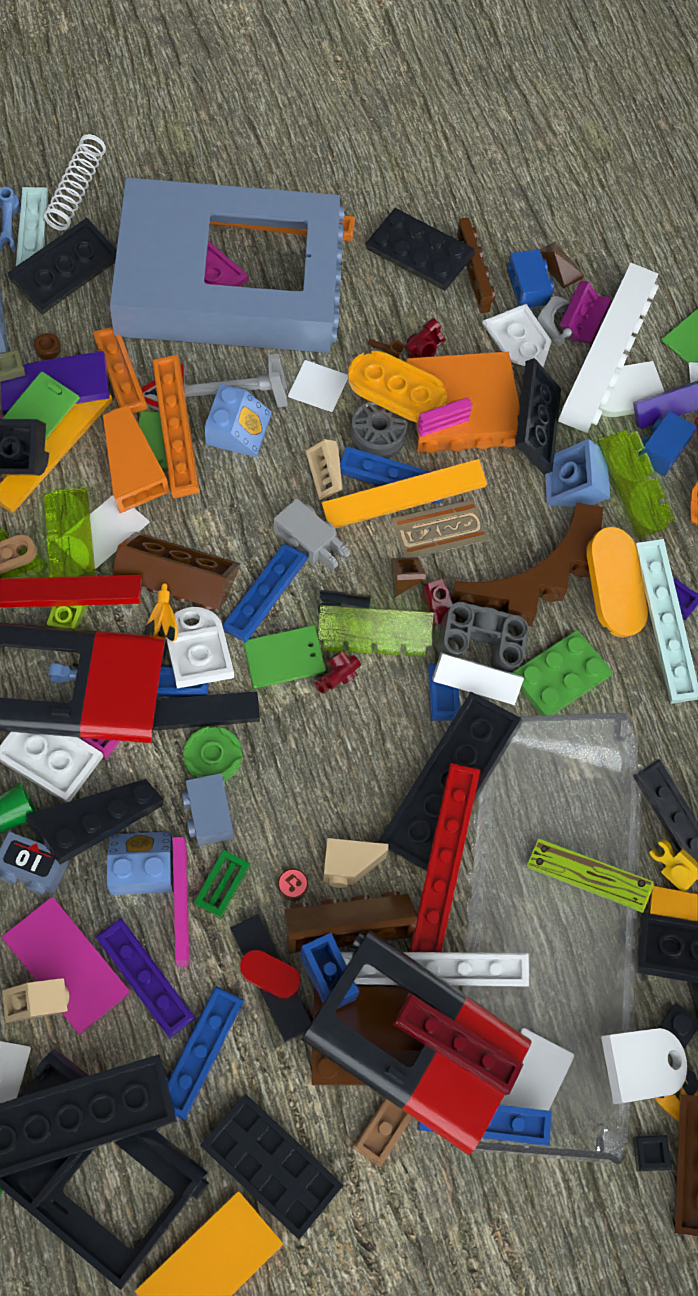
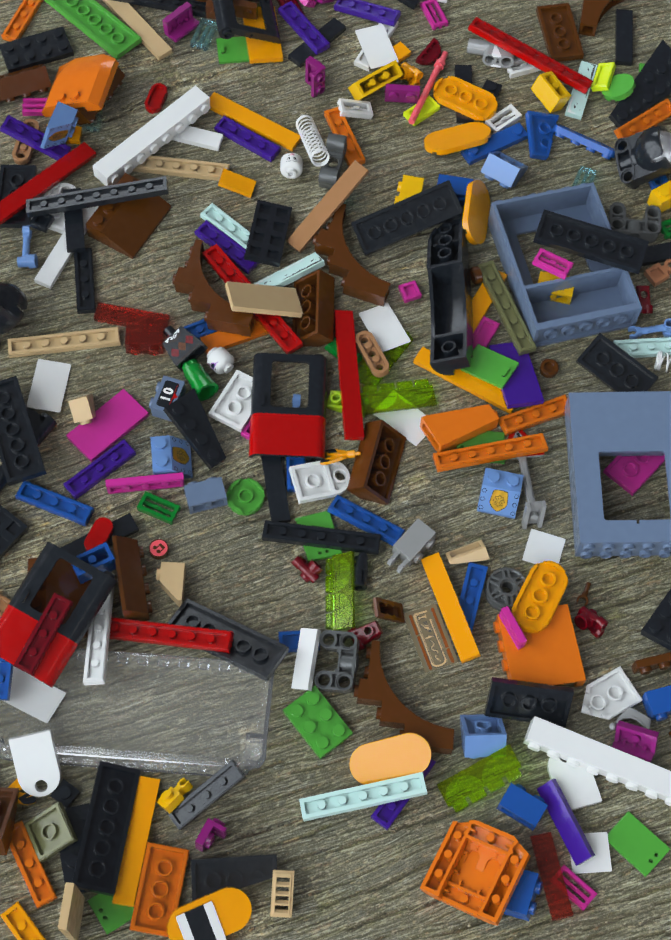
camera: 90 degrees right, 0 degrees up
(289, 652) = (321, 537): none -> black tile
(590, 875) = (163, 732): lime tile -> none

